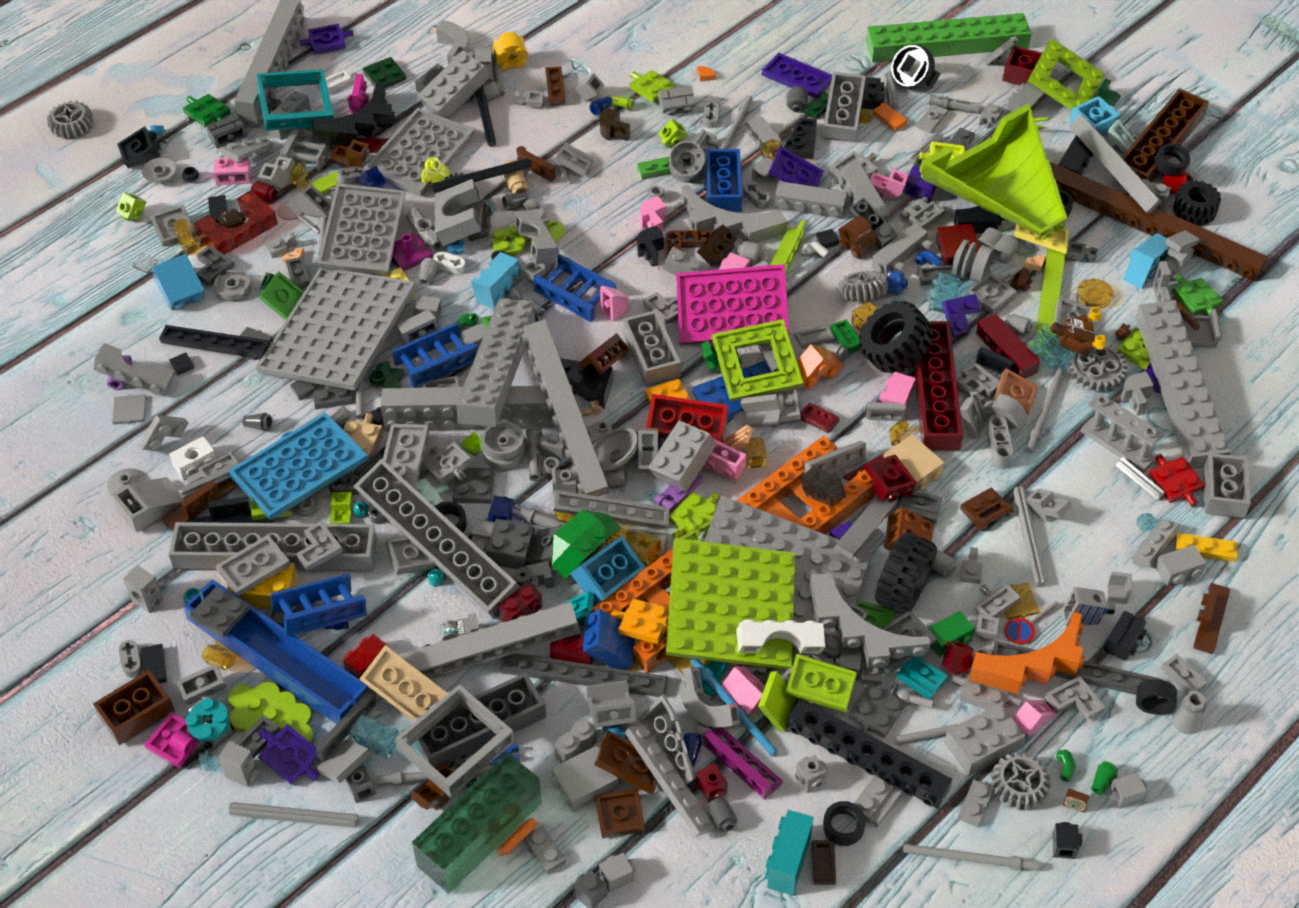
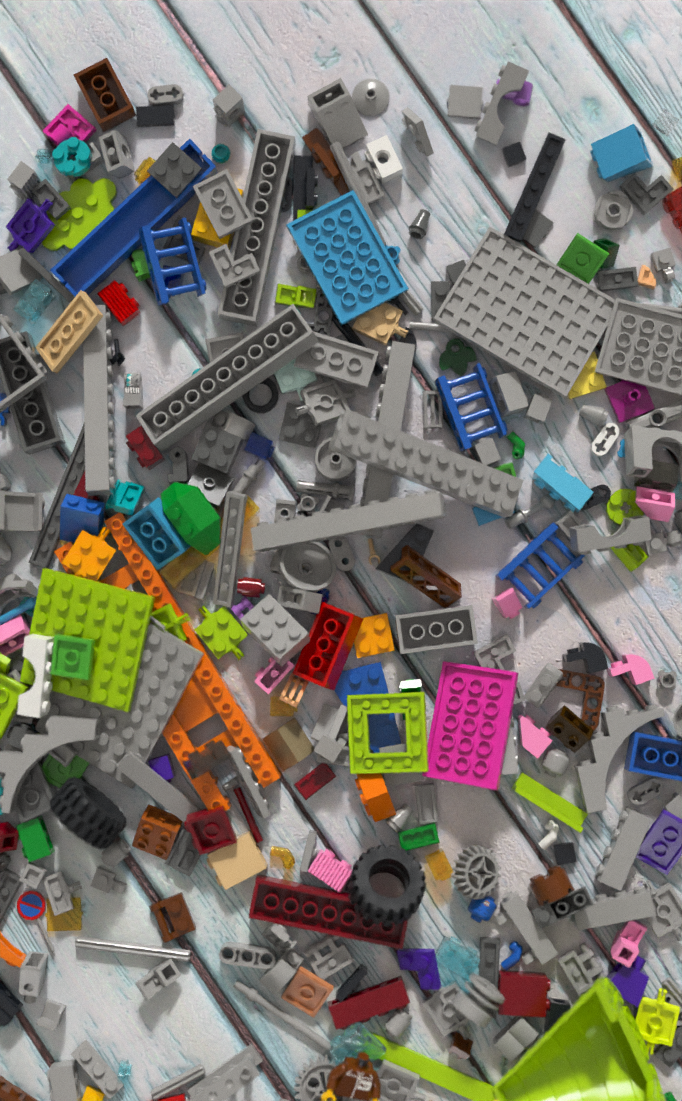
camera: 100 degrees right, 35 degrees up
(323, 641) = (140, 265): none -> bright green brick
(501, 214) = (655, 503): none -> bright pink slope
(645, 493) = (250, 587): none -> dark red brick
(751, 601) = (72, 657): none -> bright green plate
(783, 398) = (329, 747): none -> light grey panel
(790, 442) = (289, 744): none -> dark tan slope
(1035, 263) = (486, 1072): light nougat tile -> none

